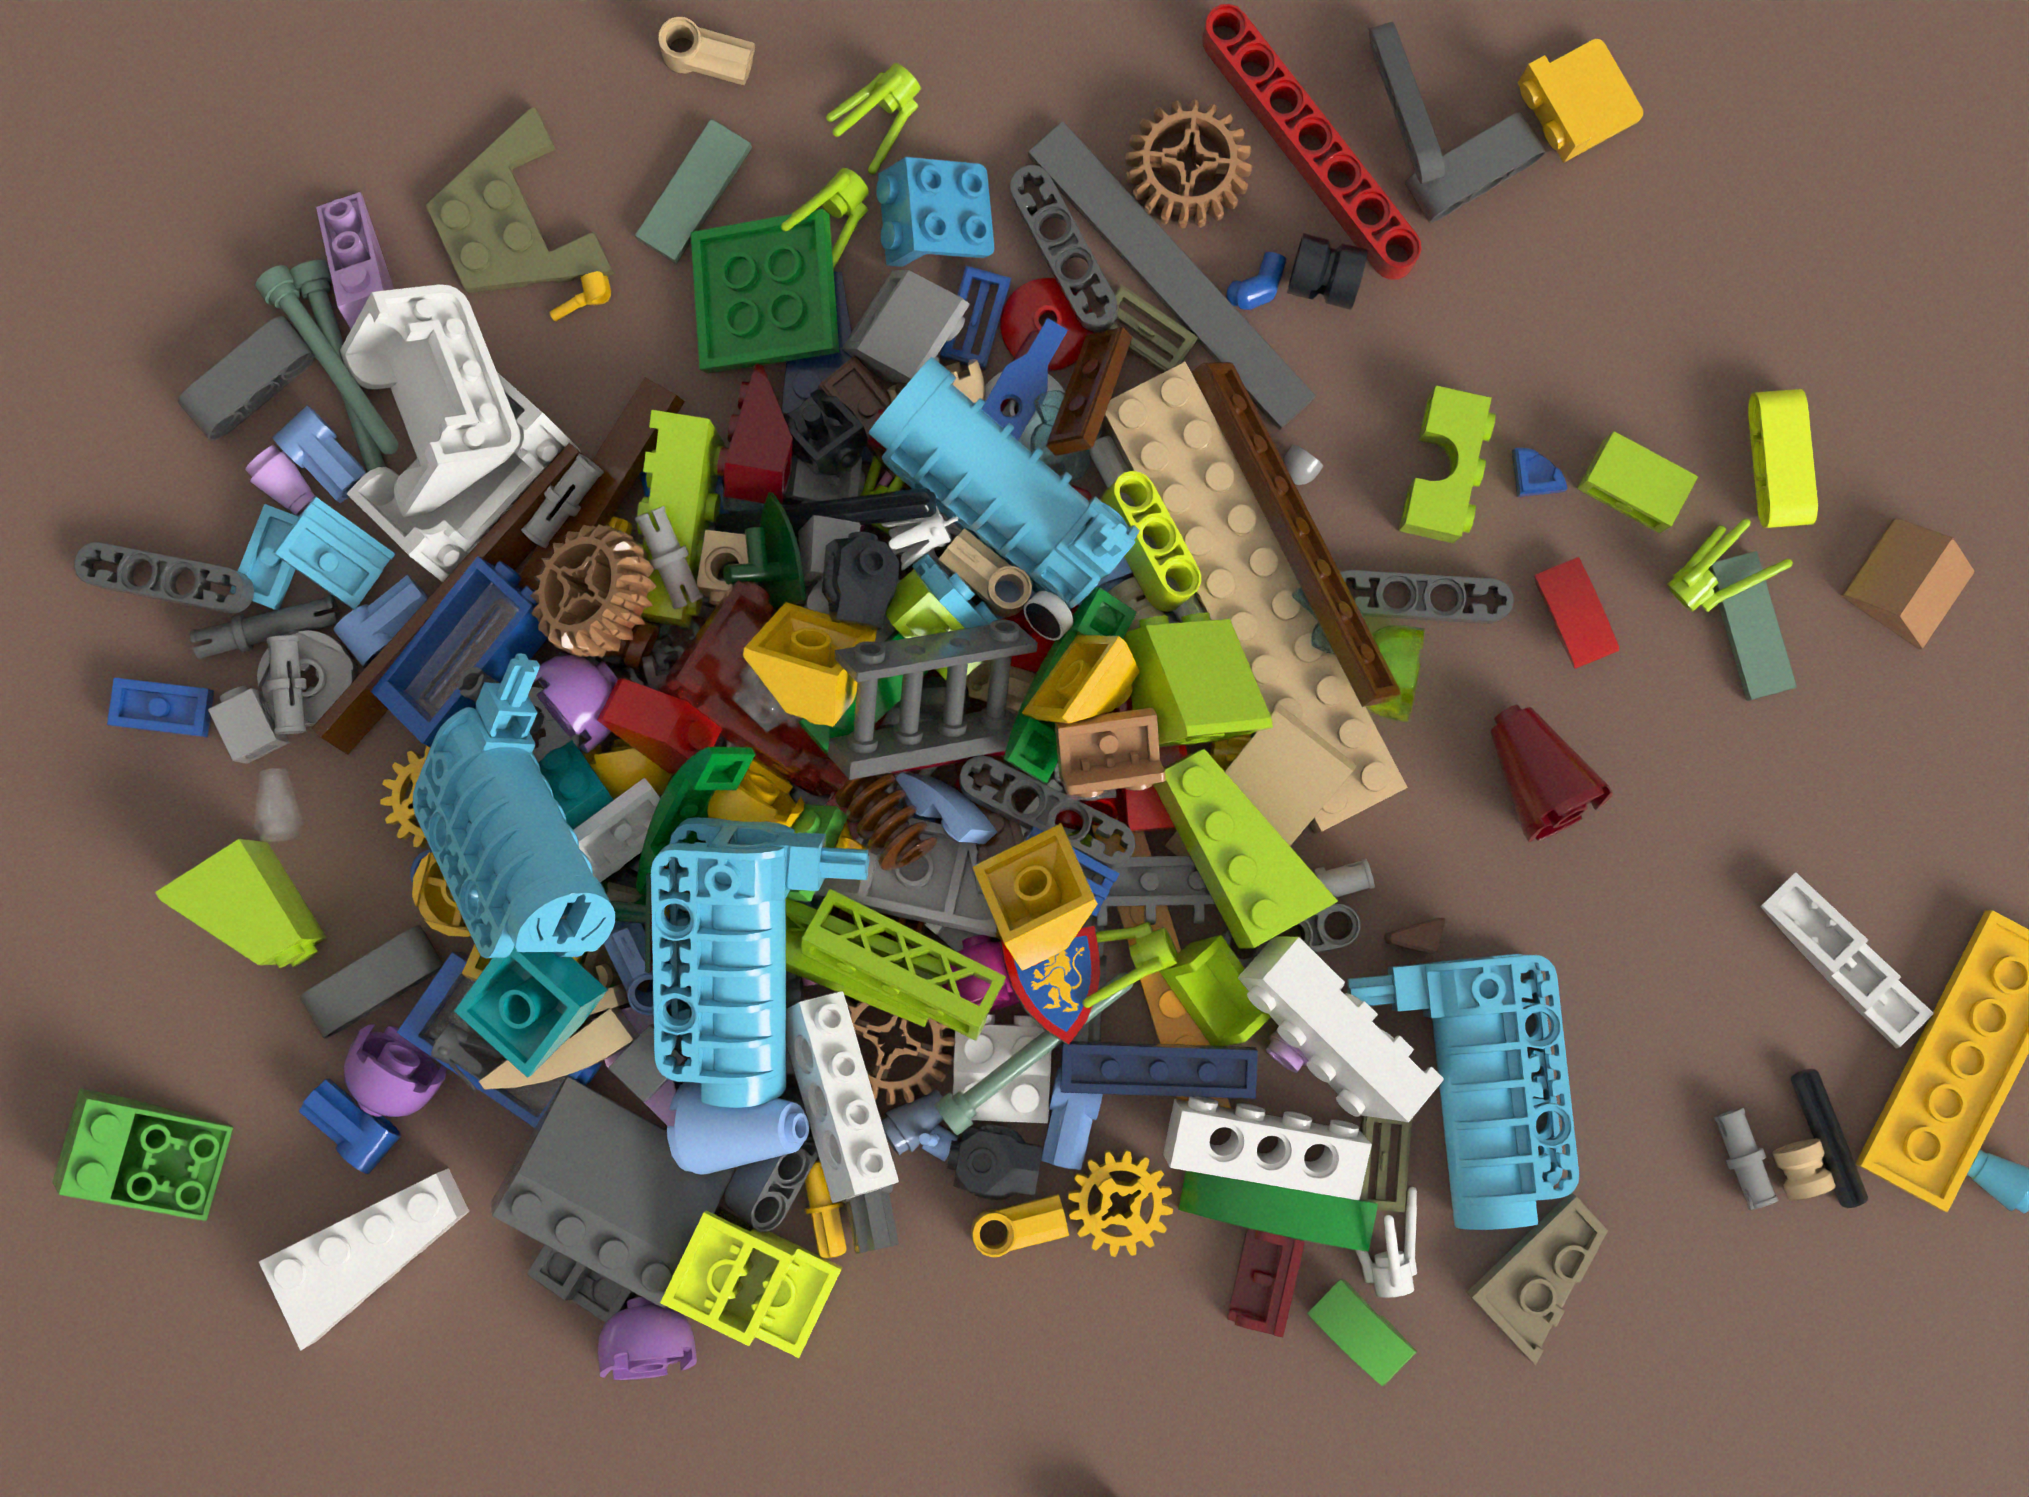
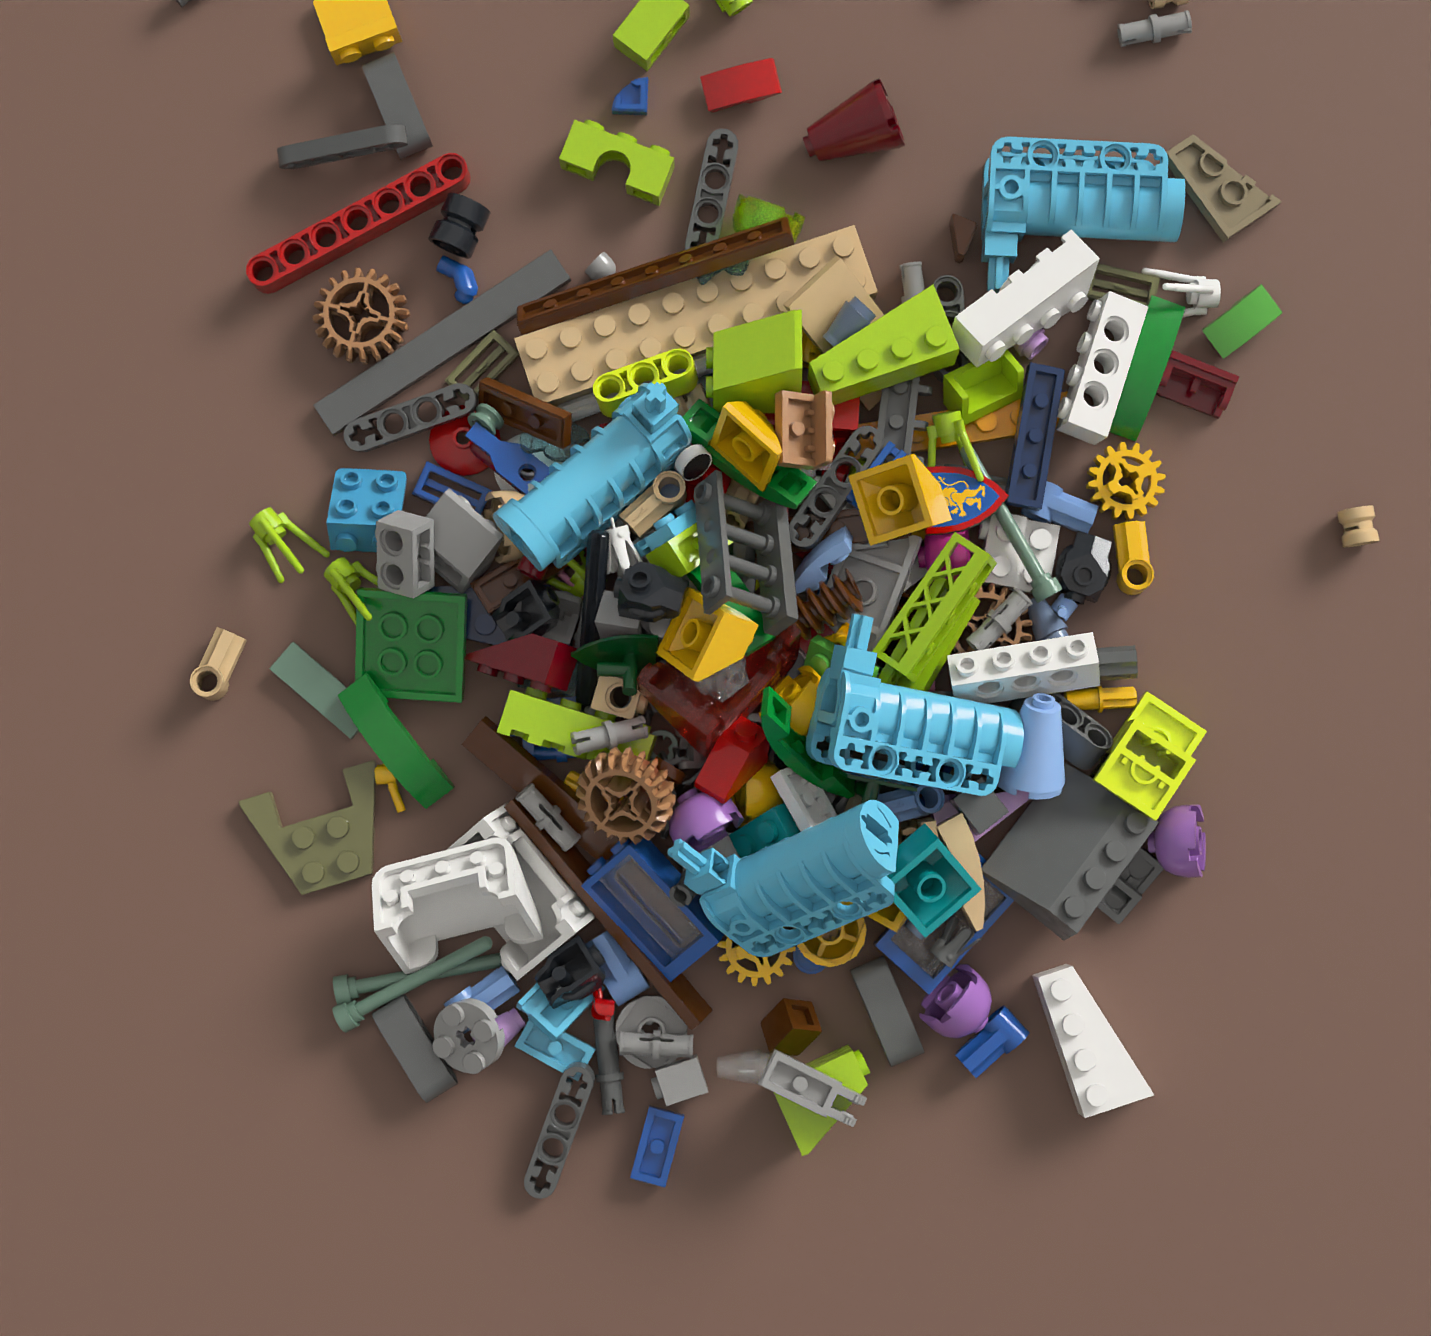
camera: 85 degrees left, 0 degrees up
(141, 1156) = (992, 1203): bright green slope -> none
(241, 887) = (808, 1087): none -> light grey hinge
(253, 422) = (453, 1046): none -> light grey plate
(324, 607) = (602, 1008): none -> red hand
(336, 858) = (791, 1026): none -> reddish brown panel
(352, 254) = (335, 954): lavender slope -> none
(363, 561) = (571, 972): none -> black hand
(632, 289) = (393, 742): none -> green slope
(876, 262) = (405, 553): none -> light grey brick
(901, 1056) = (999, 620): none -> light grey pin
(1074, 344) = (487, 418): none -> sand green bush
(1272, 797) = (849, 320): none -> sand blue cone

